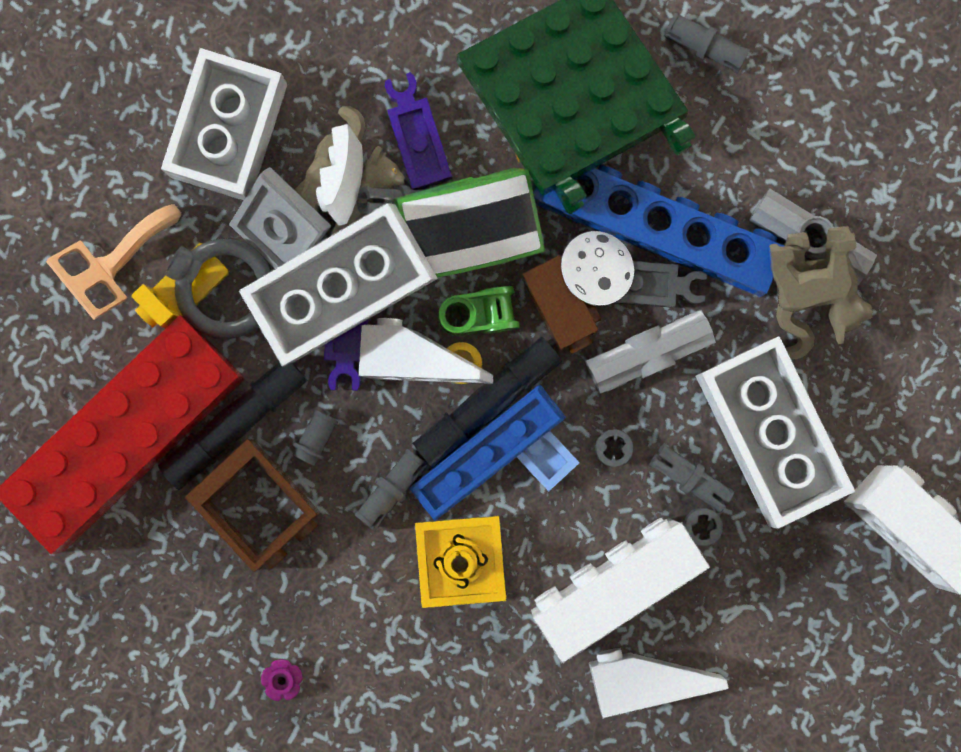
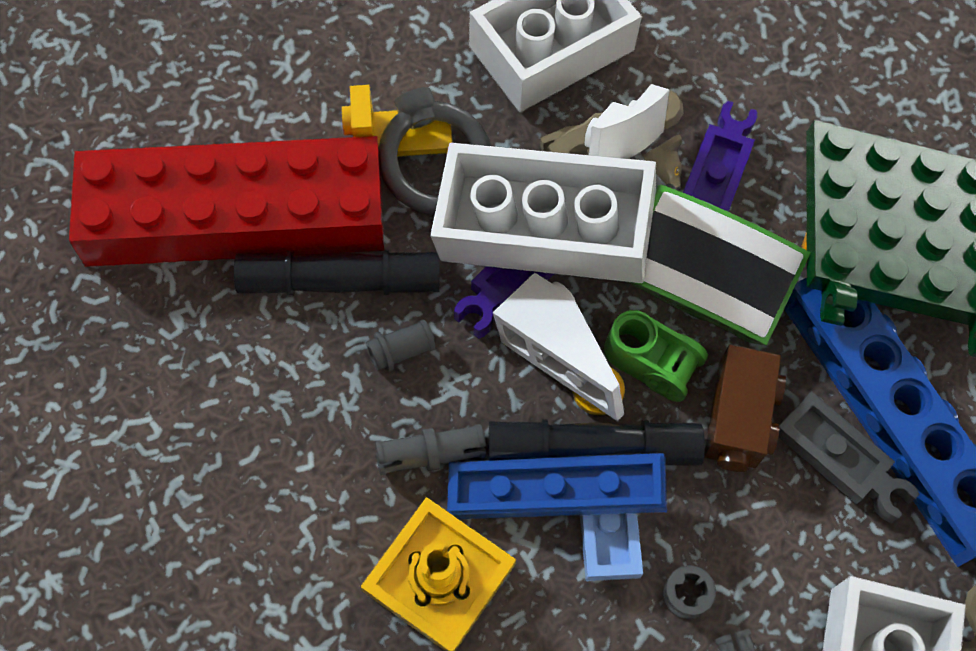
camera: 35 degrees right, 20 degrees down
(105, 268) = (349, 71): light nougat piece -> none
(222, 476) = (280, 310): reddish brown window -> none
(278, 220) = (536, 119): light grey tile -> none
(284, 669) = (166, 558): magenta plate -> none
(597, 268) = (809, 398): white sticker -> none
(650, 351) = (803, 524): light grey piece -> none

